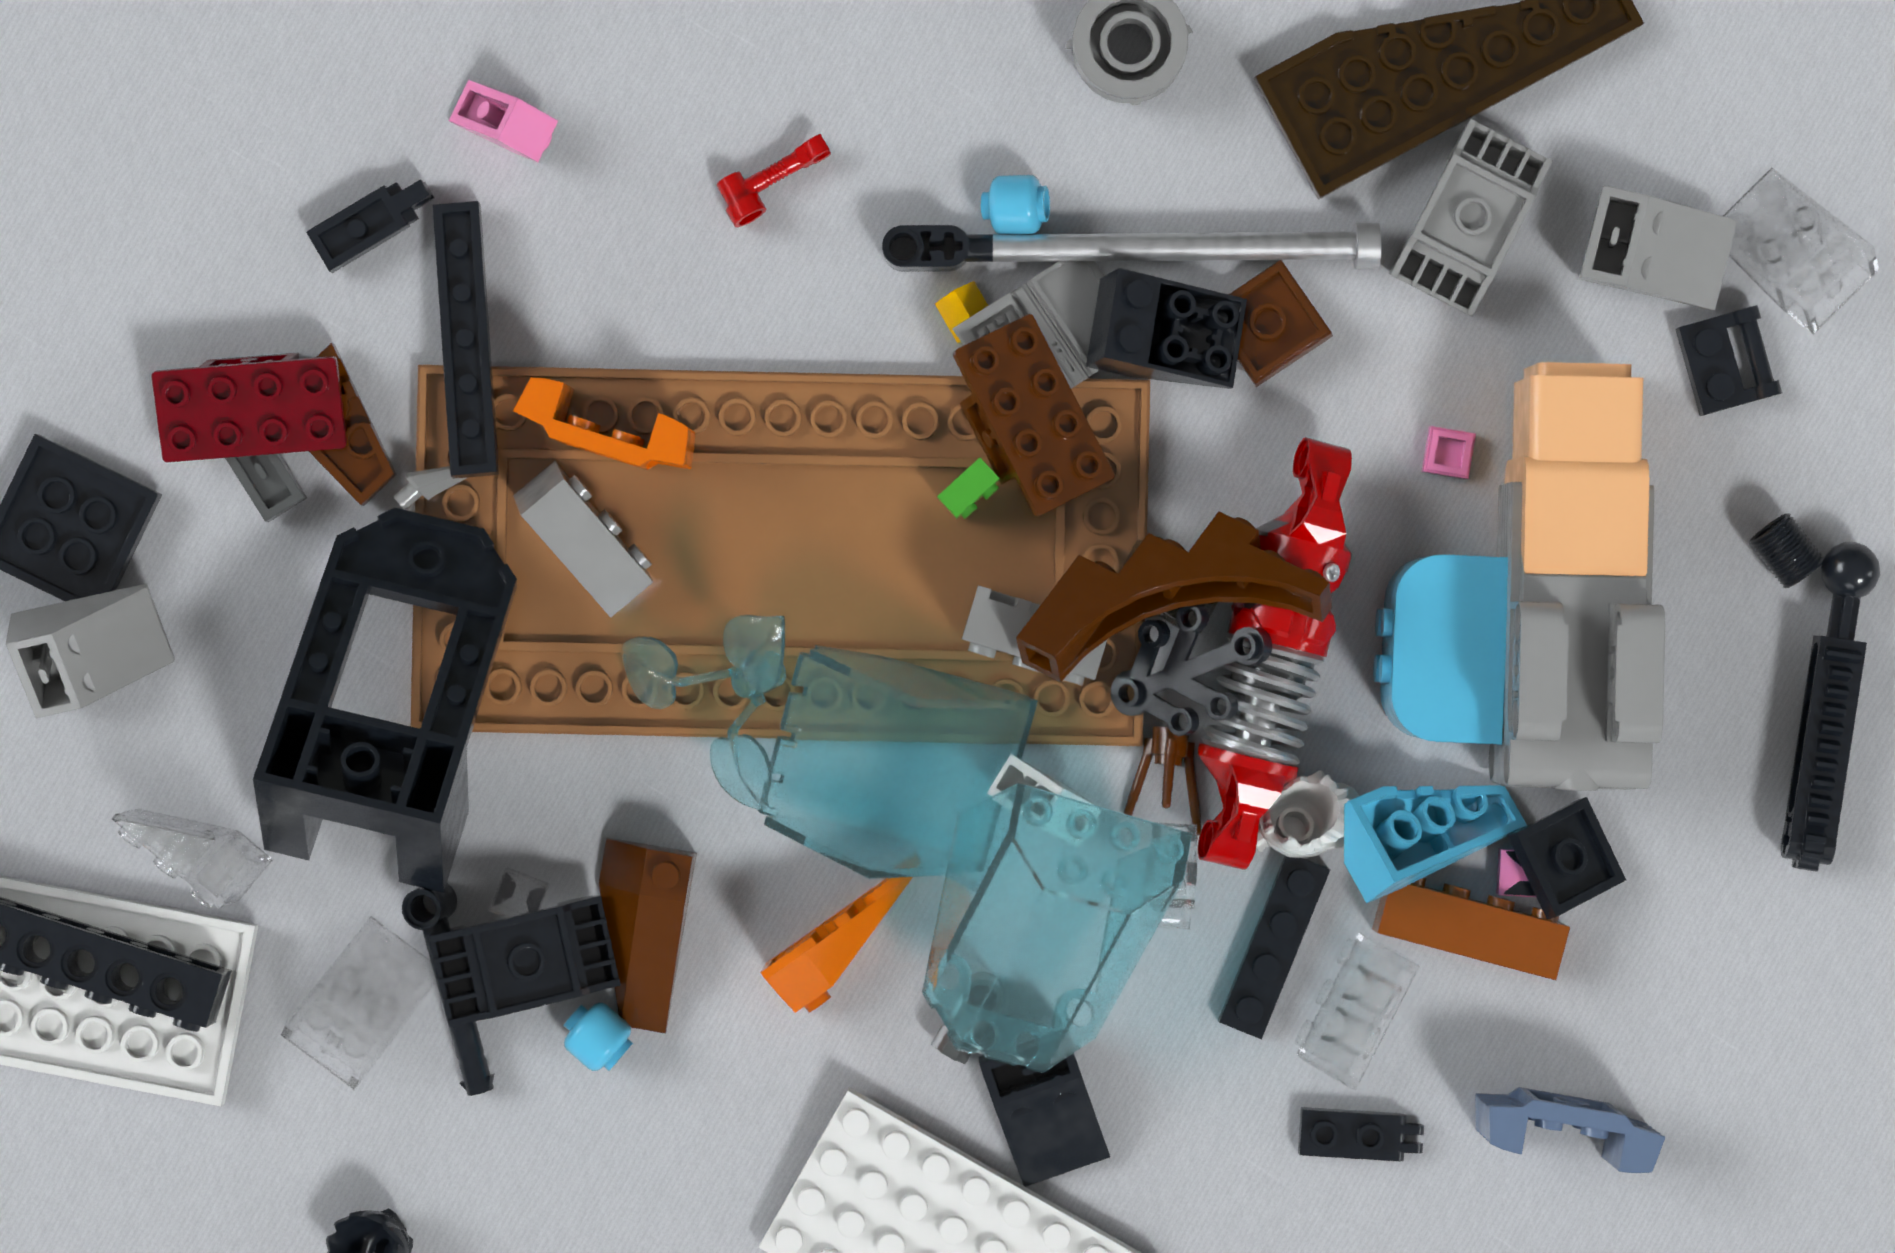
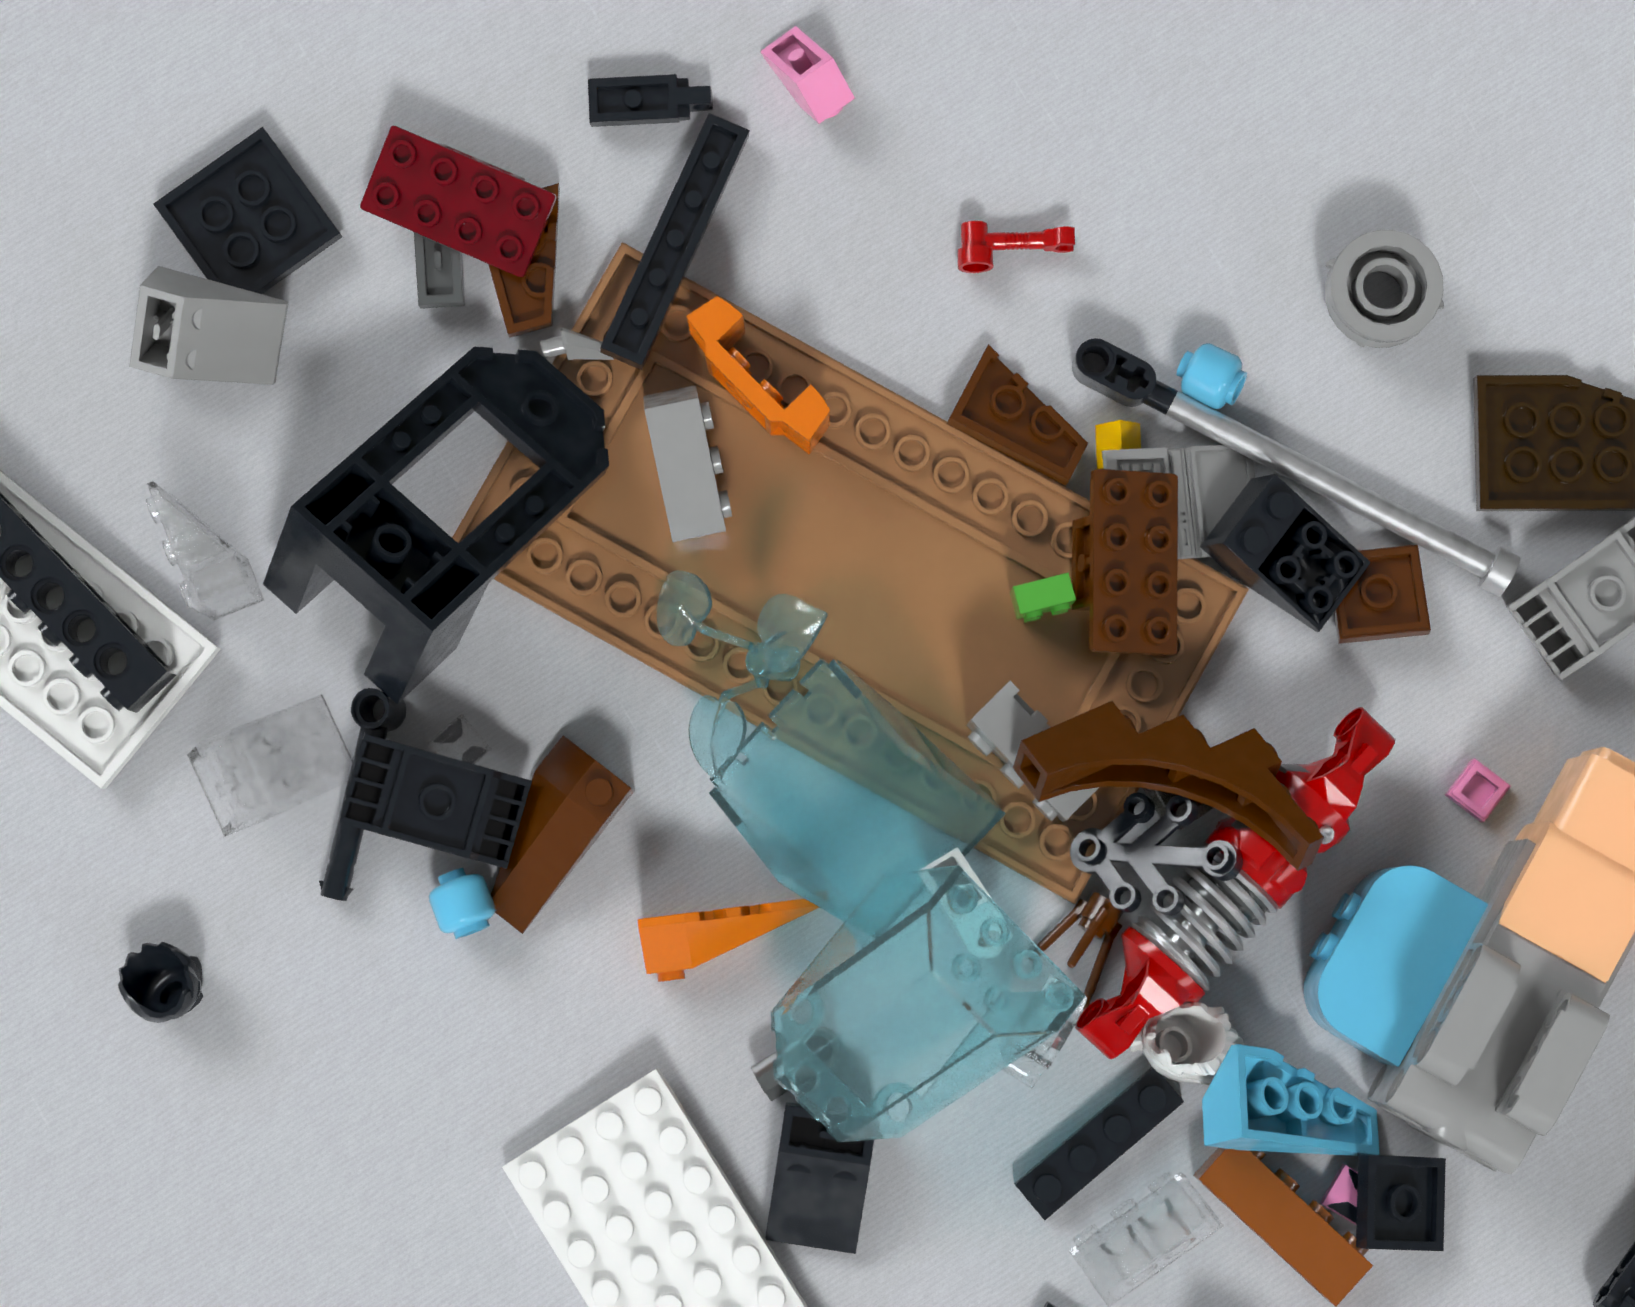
camera: 25 degrees right, 5 degrees down
(861, 340) = (1013, 420): none -> reddish brown wing

